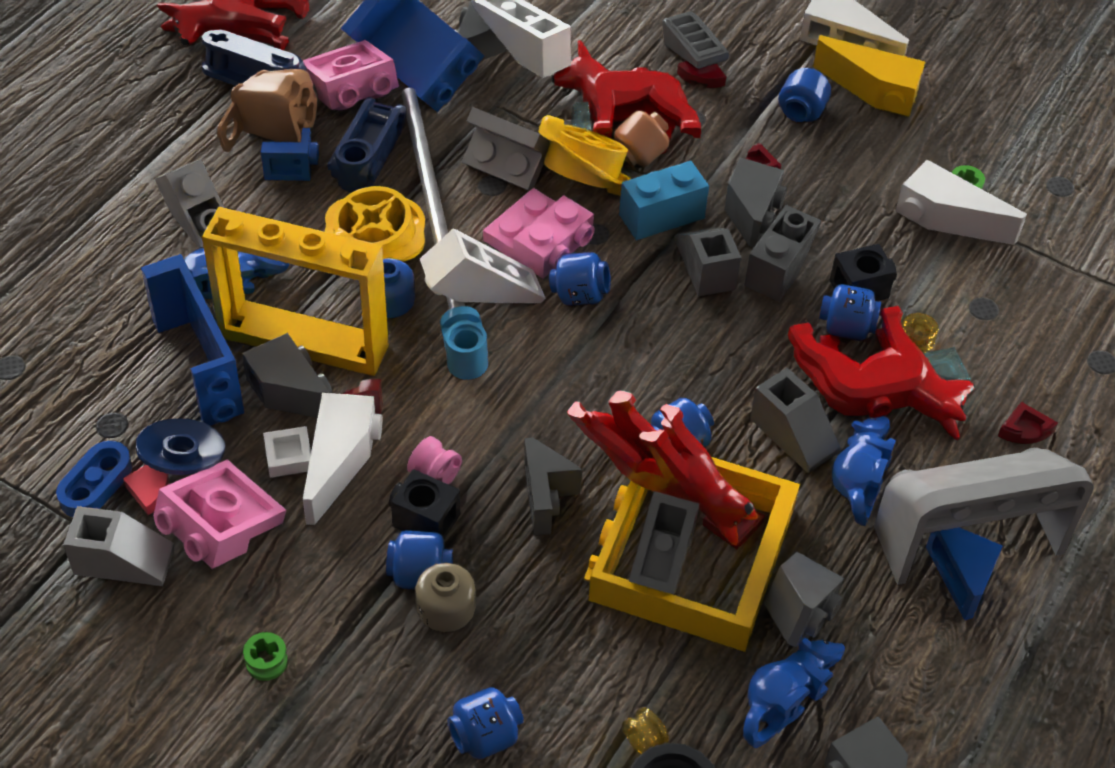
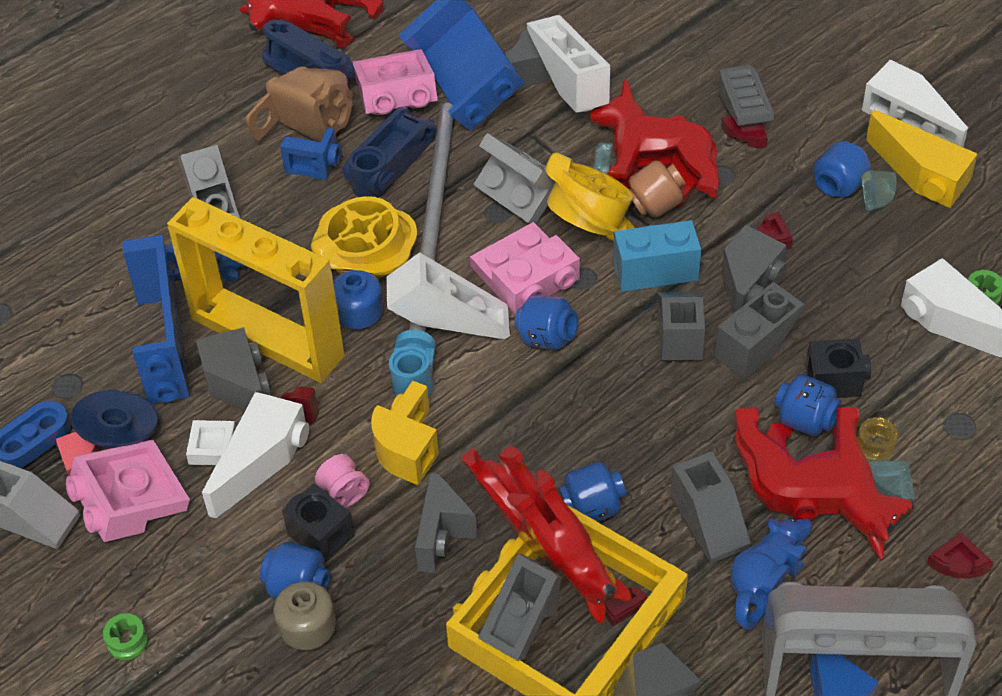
camera: 20 degrees right, 0 degrees up
(477, 414) = (400, 438): none -> yellow brick
(842, 108) = (878, 188): none -> clear light blue tile

